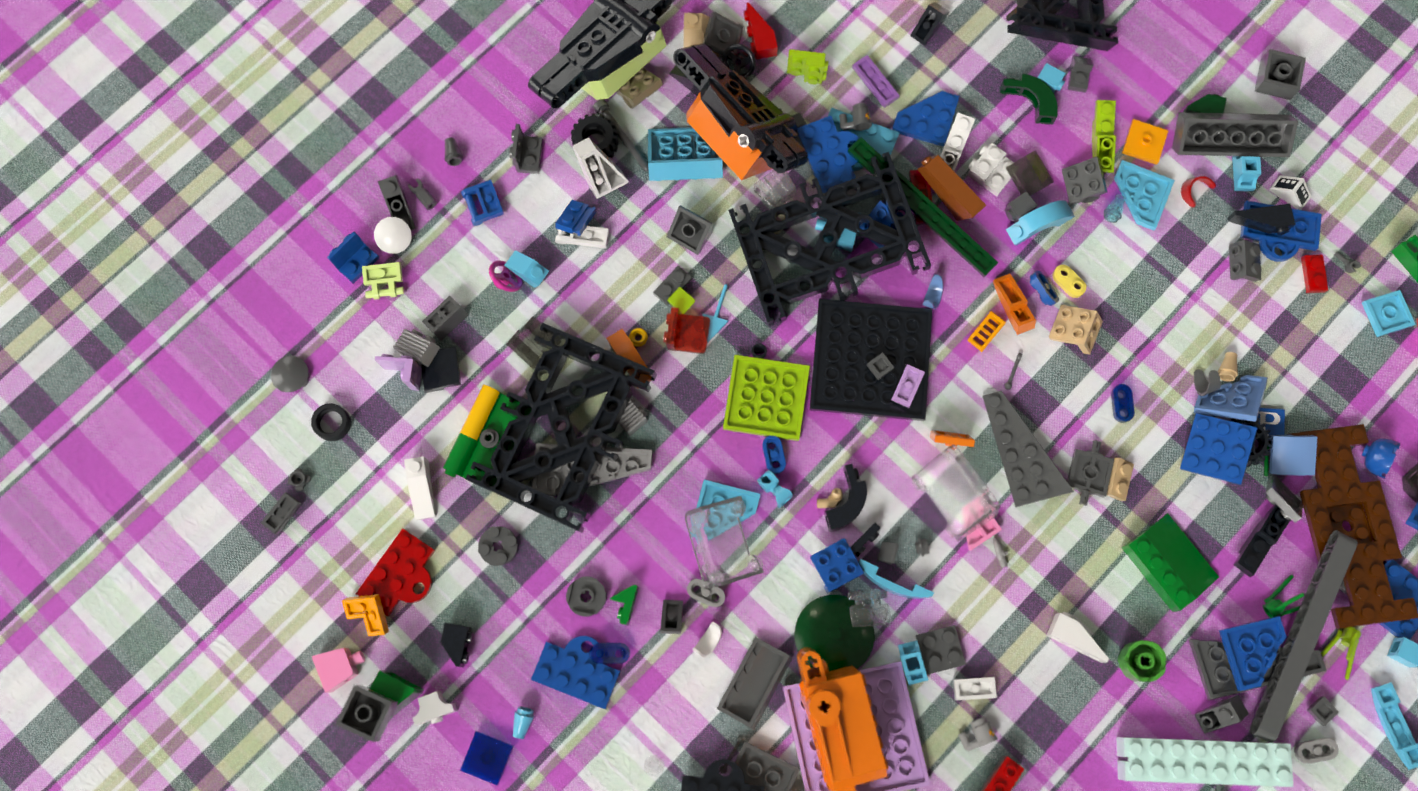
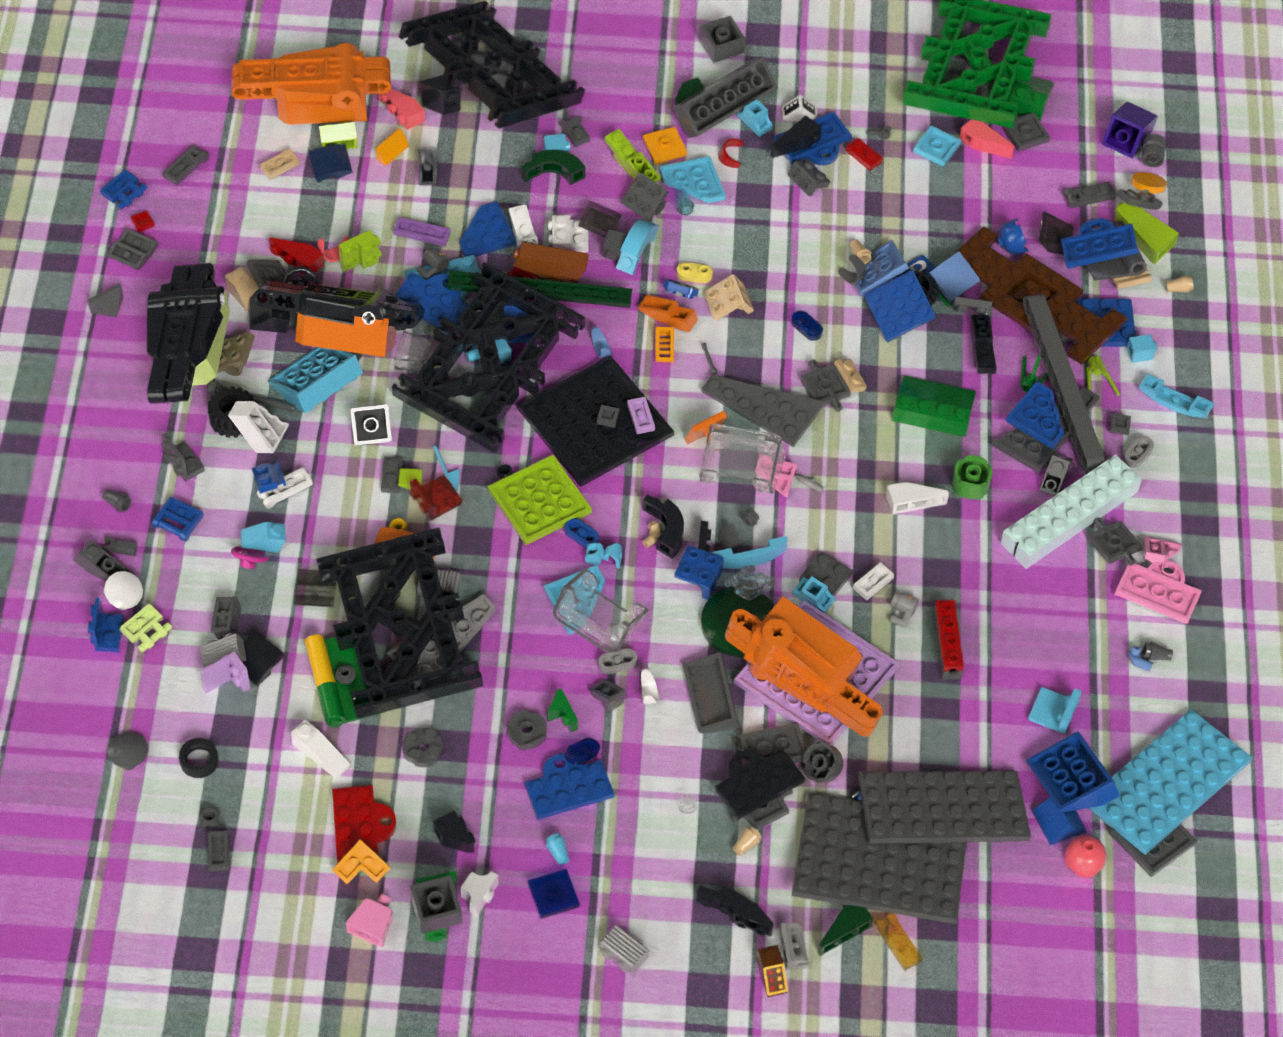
camera: 45 degrees left, 20 degrees down
(783, 47) = (330, 255): none -> coral helmet

